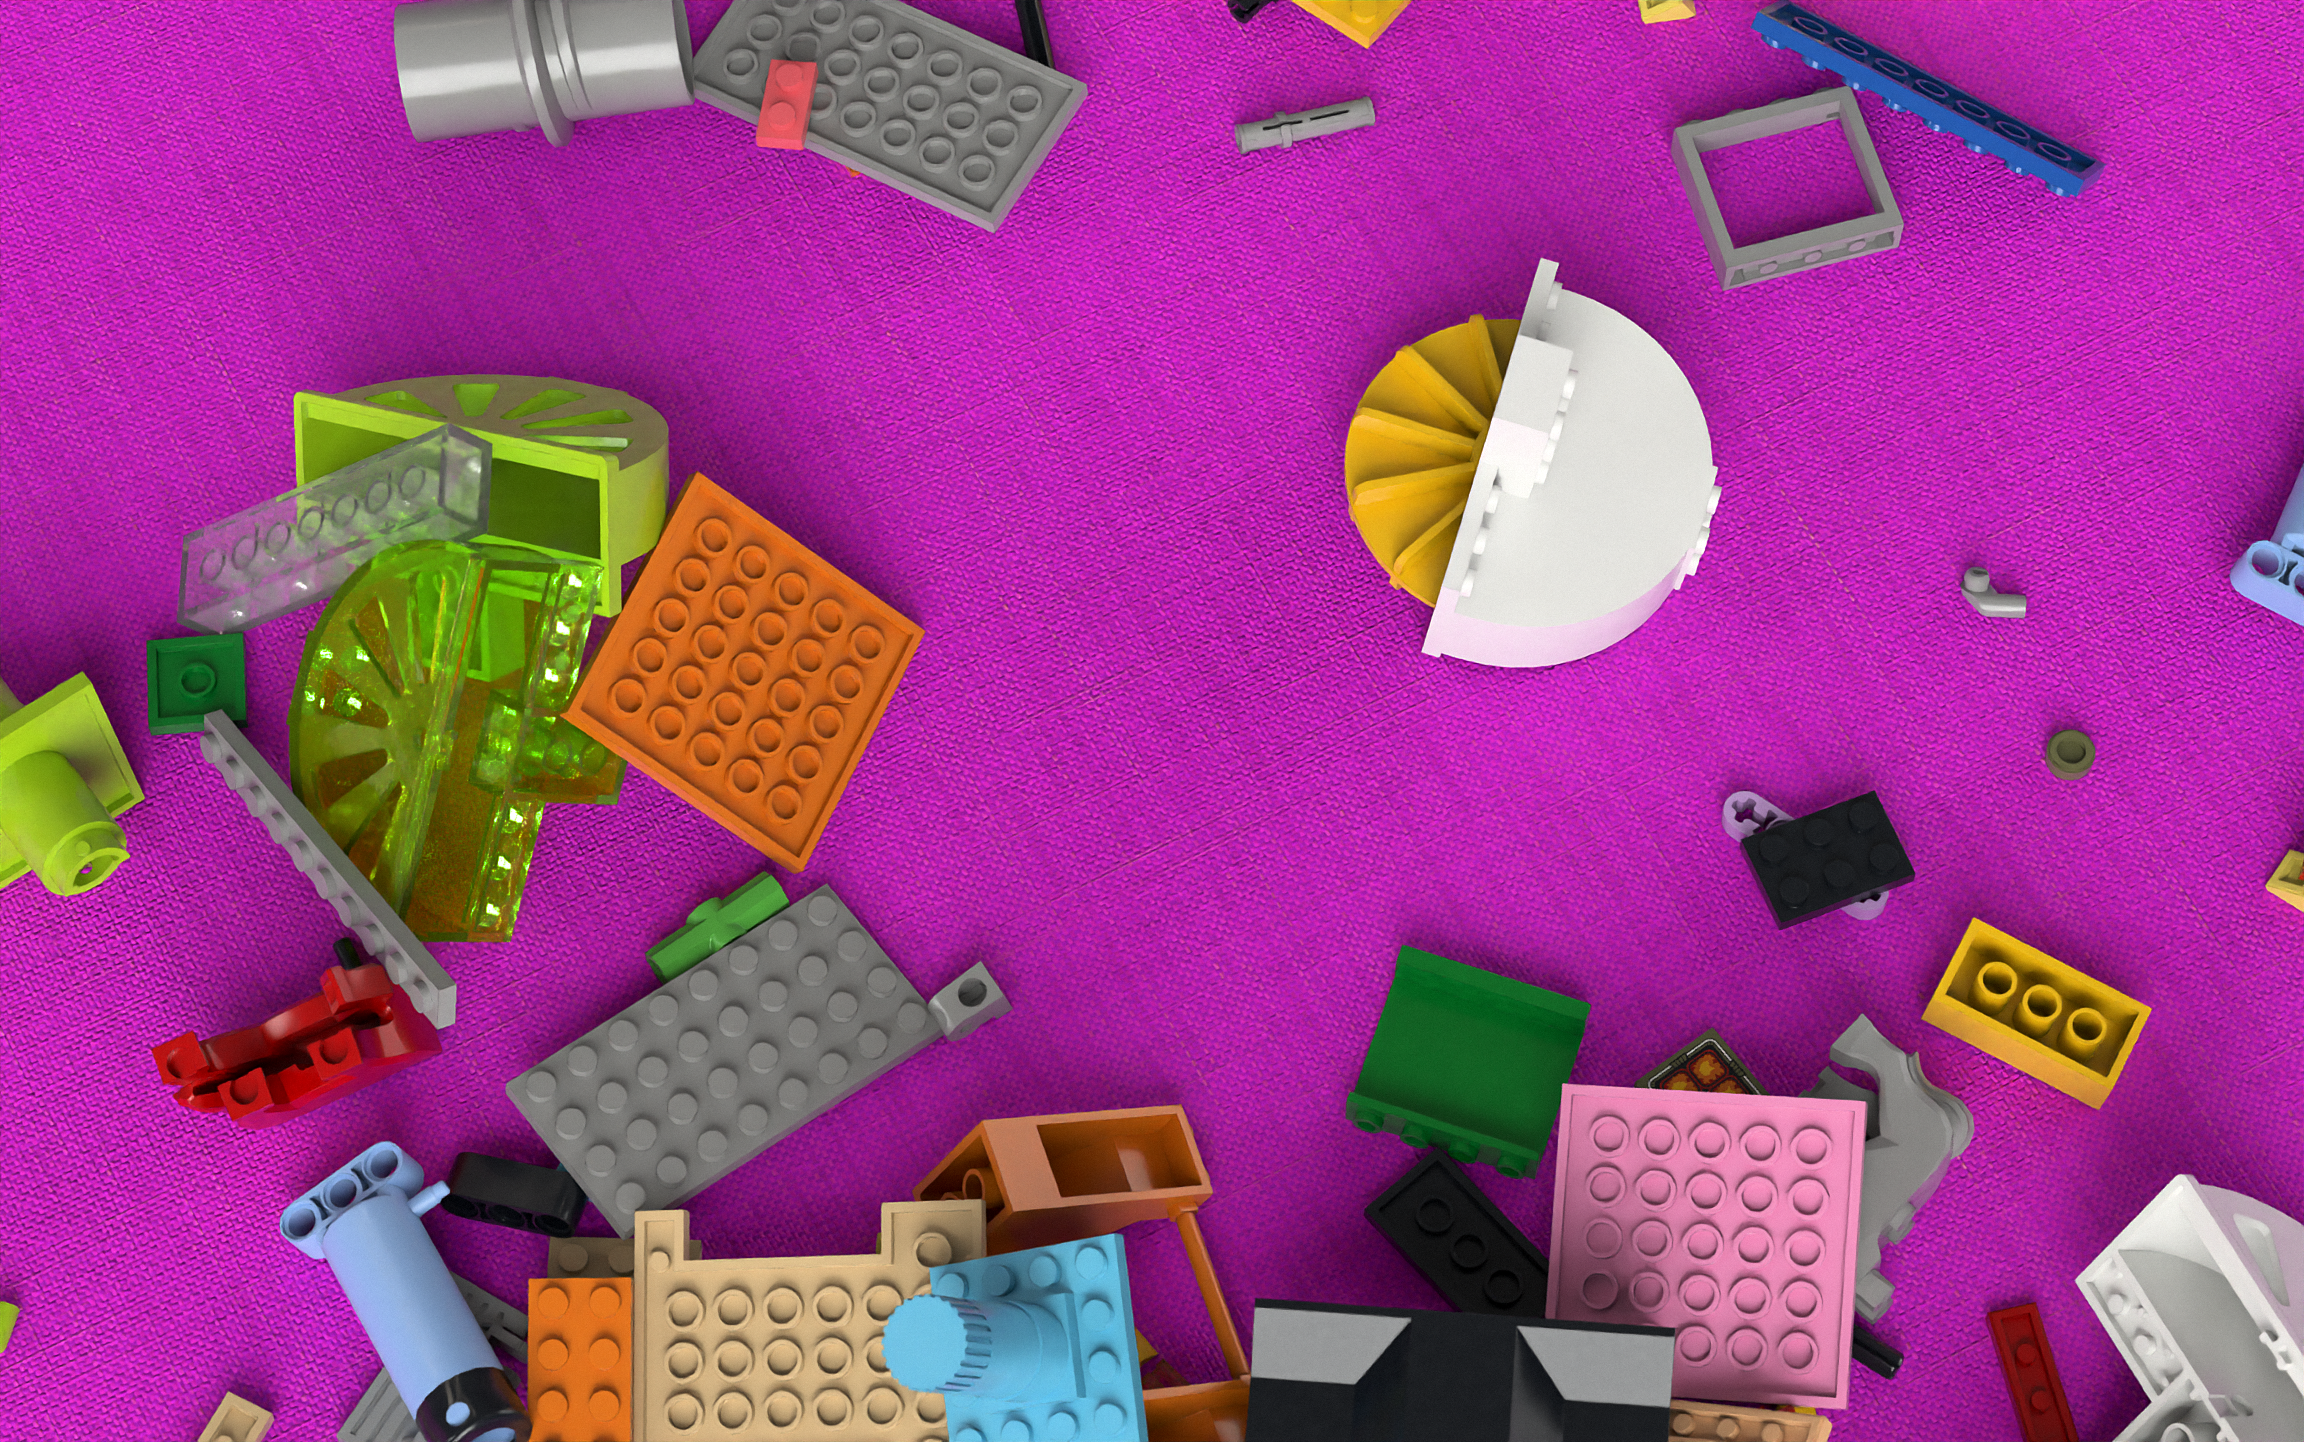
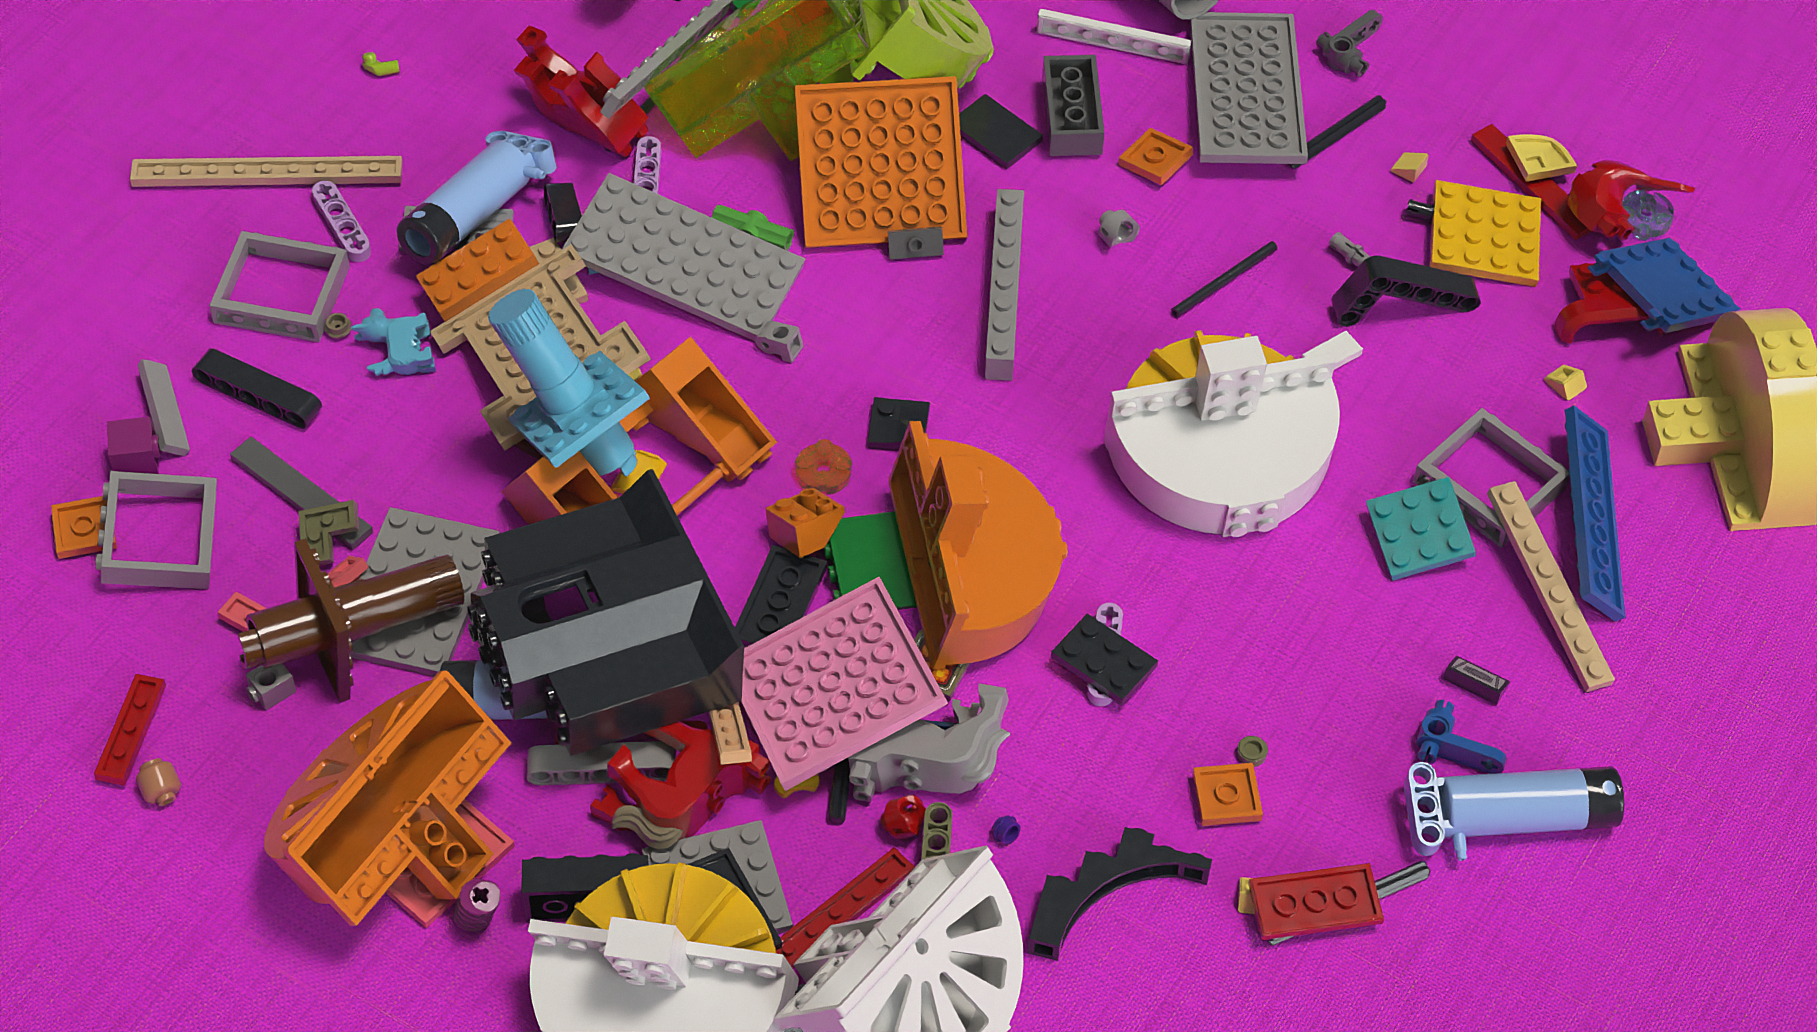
camera: 60 degrees right, 10 degrees down
(513, 1032) = (648, 179): none -> lavender beam
(653, 214) = (1113, 36): none -> tile
(753, 465) = (997, 131): none -> black tile
(767, 343) = (1073, 105): none -> dark grey brick
(787, 104) = (1206, 52): coral plate -> none
(895, 710) = (915, 242): none -> dark grey plate
(928, 286) = (1155, 156): none -> orange plate
(1044, 416) = (1114, 227): none -> light grey piece
(1057, 627) = (1004, 285): none -> light grey brick
(1217, 326) = (1224, 279): none -> black piece
(1228, 916) = (891, 420): none -> black plate
(1248, 1037) = (826, 454): none -> plate
(1361, 1139) = (804, 521): none -> orange slope
(1402, 110) = (1402, 280): none -> black beam
(1443, 263) = (1342, 346): none -> white tile
(1567, 900) = (987, 542): none -> orange piece
(1830, 327) = (1420, 528): none -> teal plate
(1952, 1275) = (903, 821): none -> red piece
(1985, 598) = (1316, 672): light grey arm -> none
(2012, 1234) = (937, 833): none -> olive beam
(2017, 223) = (1550, 587): none -> tan plate
(2036, 1013) = (1079, 791): yellow brick -> none
(2036, 1147) = (1006, 829): none -> dark purple plate
(2105, 405) = (1476, 679): none -> slope
(2130, 825) = (1227, 794): none -> orange plate
(2197, 503) = (1452, 746): none -> blue piece
(2198, 1130) = (1136, 861): none -> black arch

